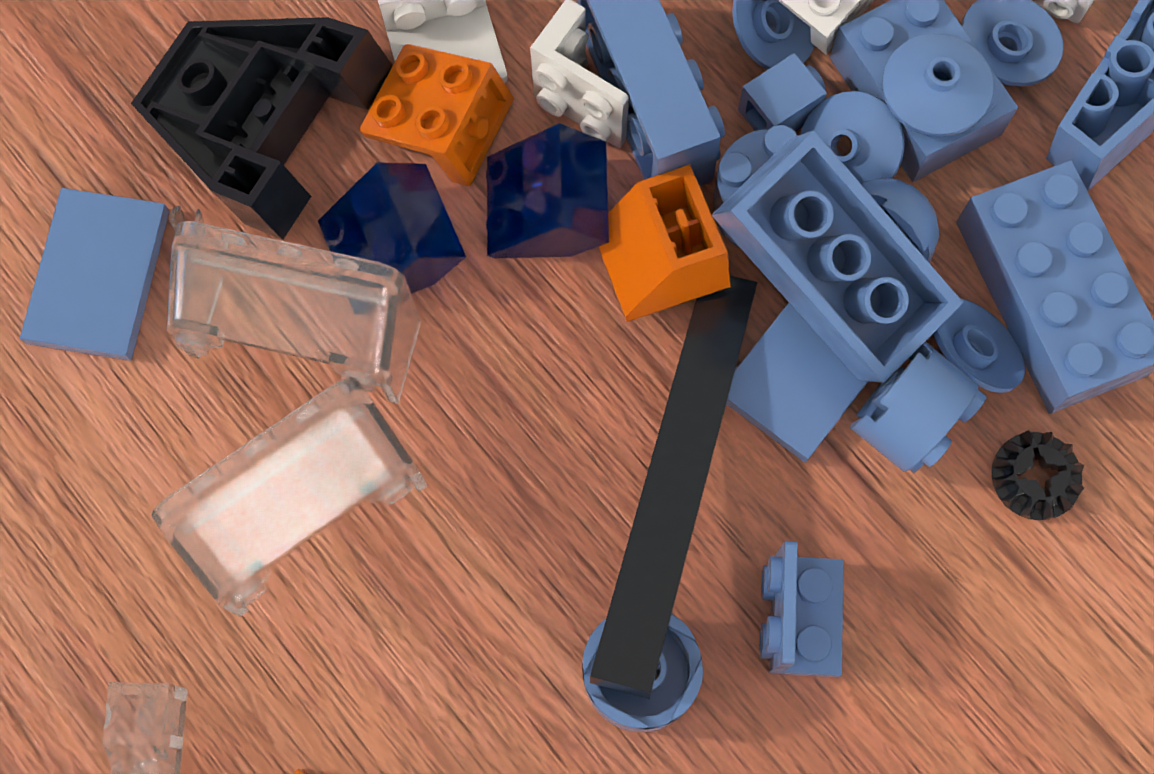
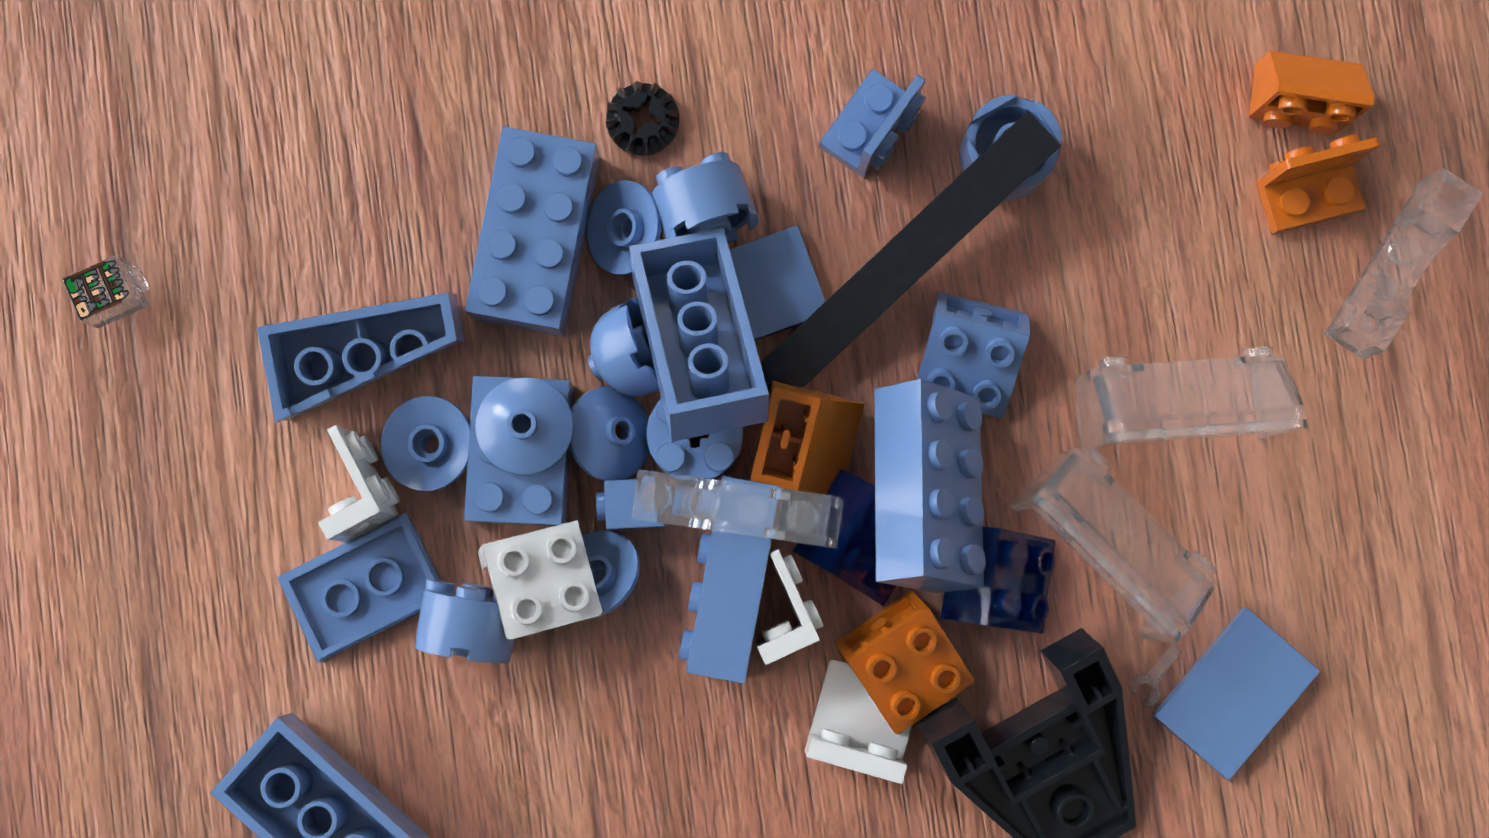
camera: 155 degrees left, 10 degrees up
(511, 256) = (928, 488): none -> medium blue brick
(550, 441) = (975, 350): none -> medium blue bracket
(633, 123) = (737, 508): none -> clear arch

